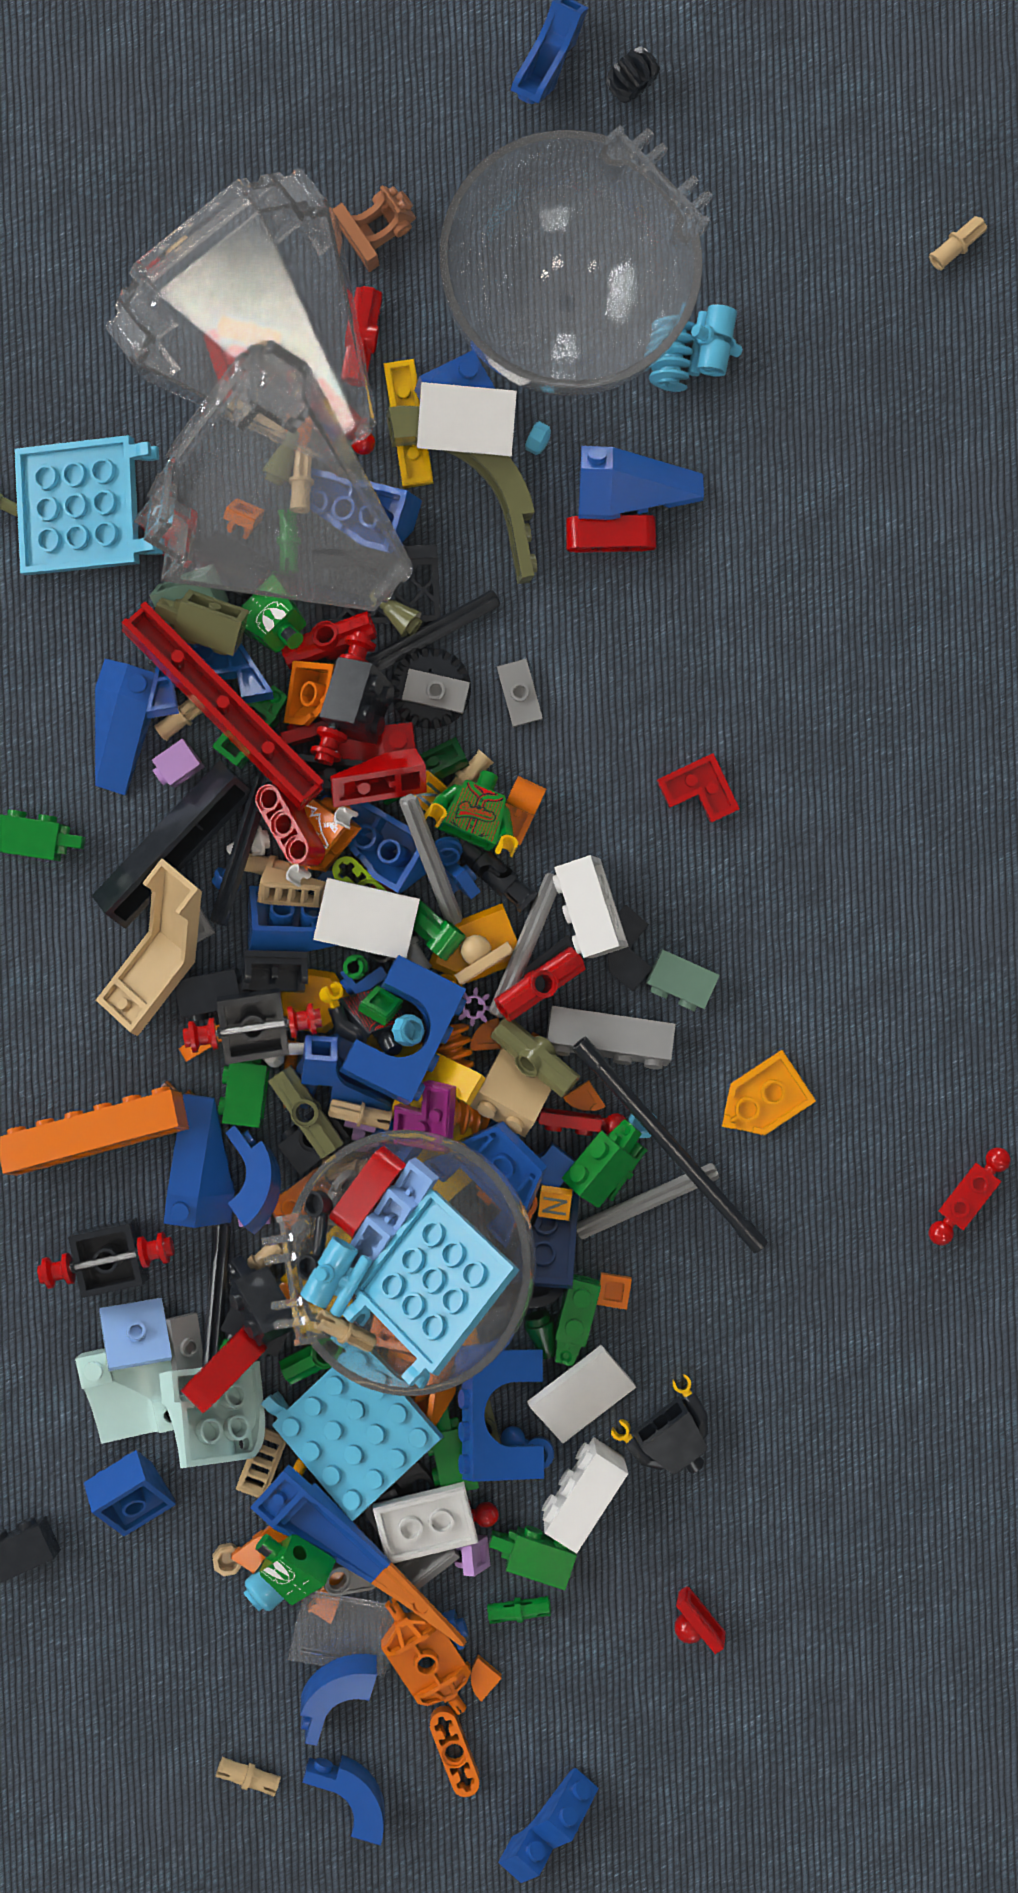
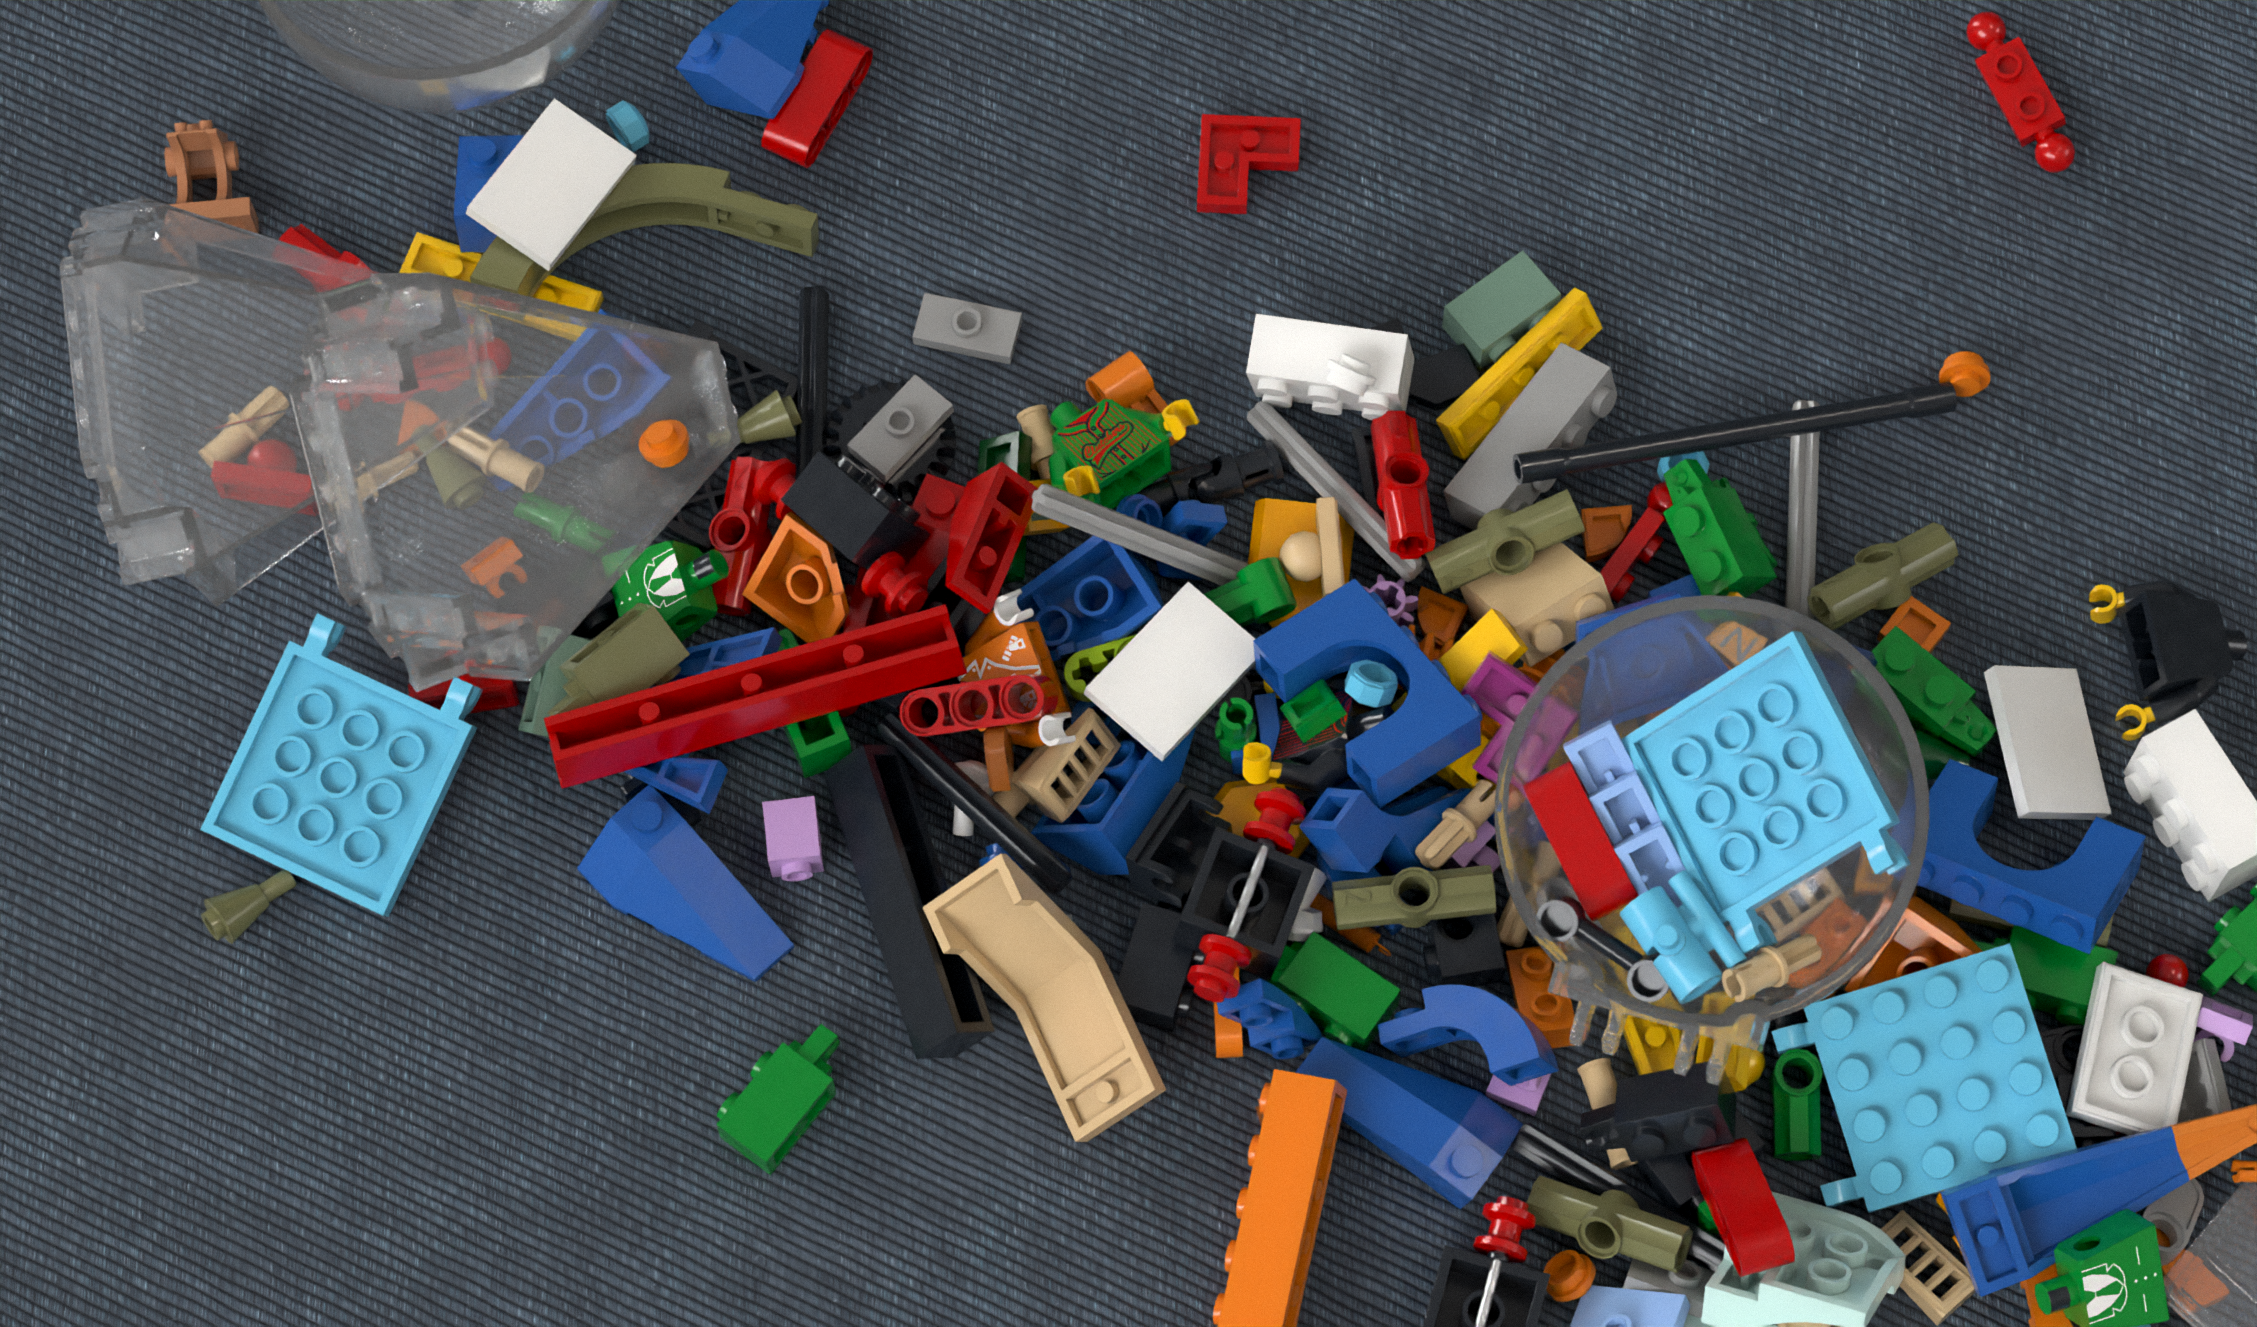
camera: 60 degrees left, 20 degrees down
(159, 1288) = (1569, 1275): none -> orange plate
(173, 723) = (729, 806): tan axle -> none
(193, 1296) = (1609, 1224): none -> olive piece
(206, 1073) = (1272, 1019): none -> blue slope
(266, 853) = (999, 758): none -> dark orange tile
(348, 571) = (664, 443): none -> orange plate
(576, 928) = (1350, 374): none -> white plate
(632, 1262) = (1882, 576): none -> olive piece
(649, 1007) = (1487, 400): none -> yellow tile
(766, 1096) = (1734, 286): light orange tile -> none
(777, 1248) = (1966, 373): none -> orange plate

